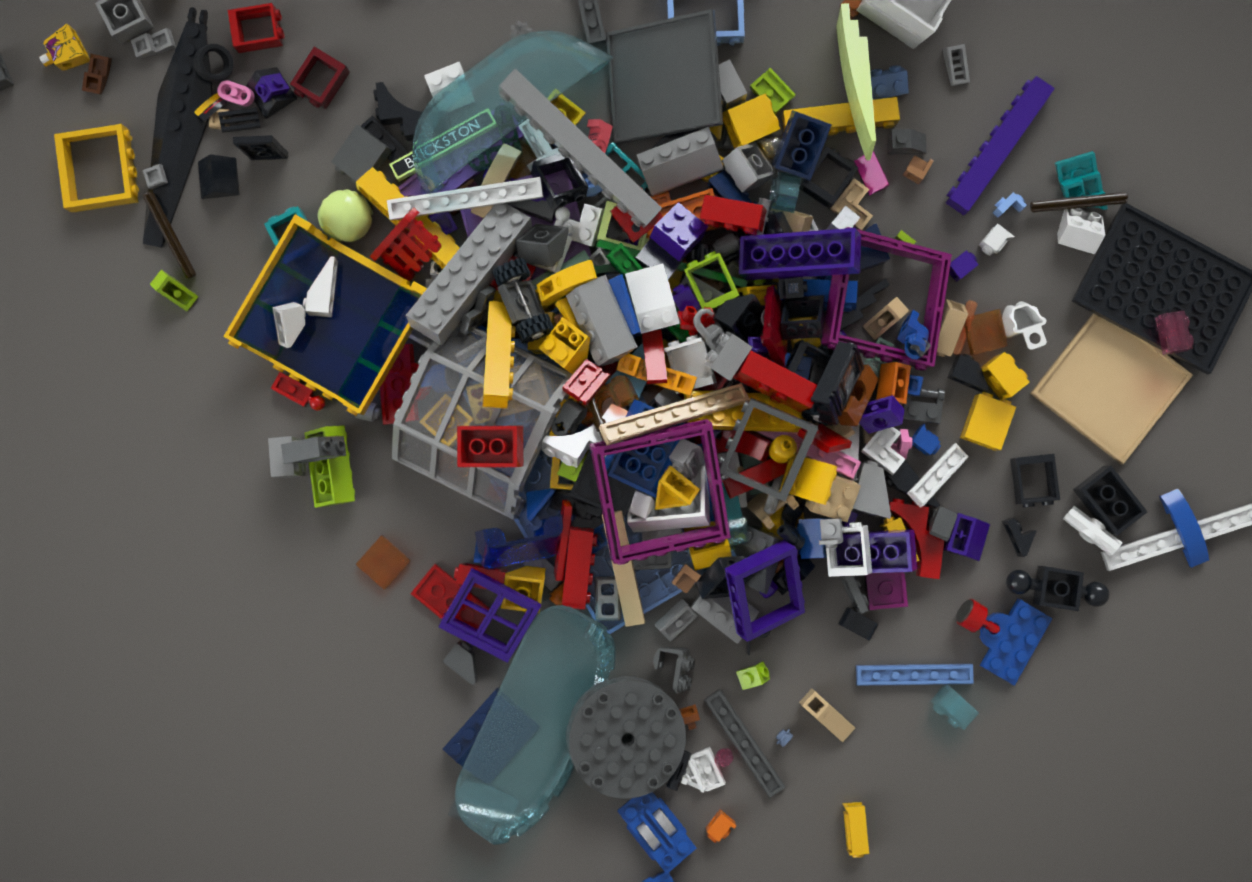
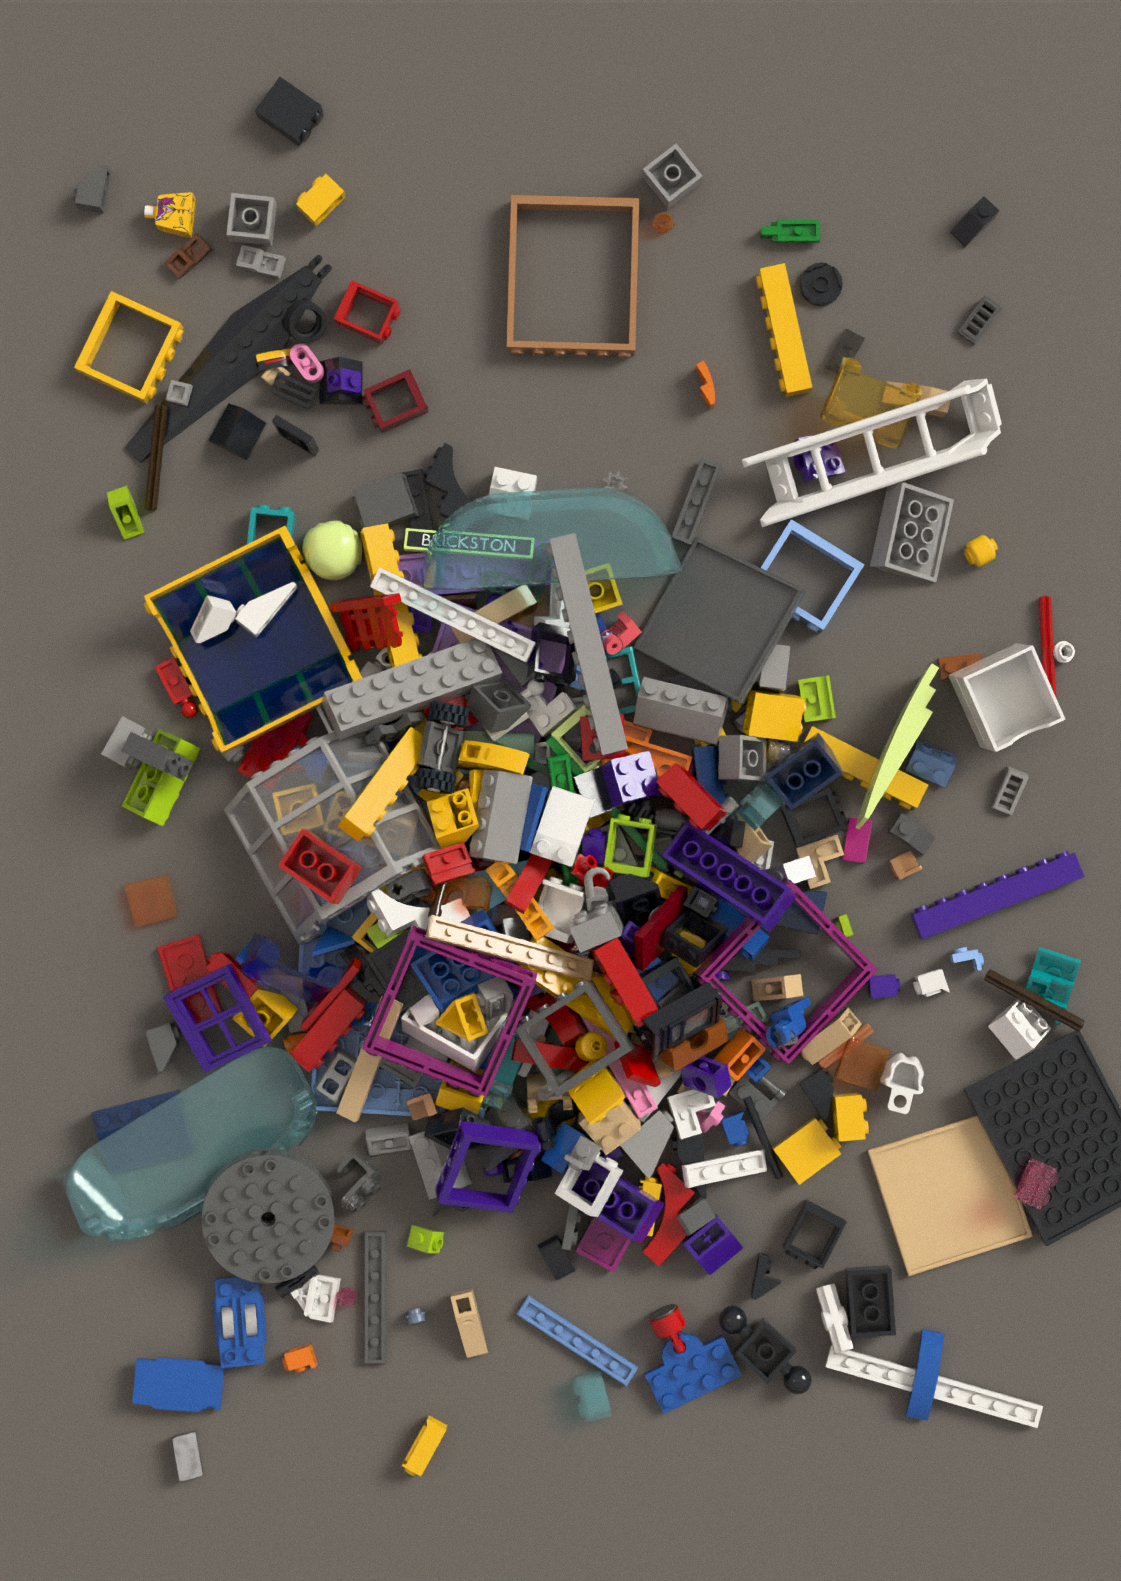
camera: 30 degrees right, 0 degrees up
(950, 434) = (763, 1137): none -> black bar

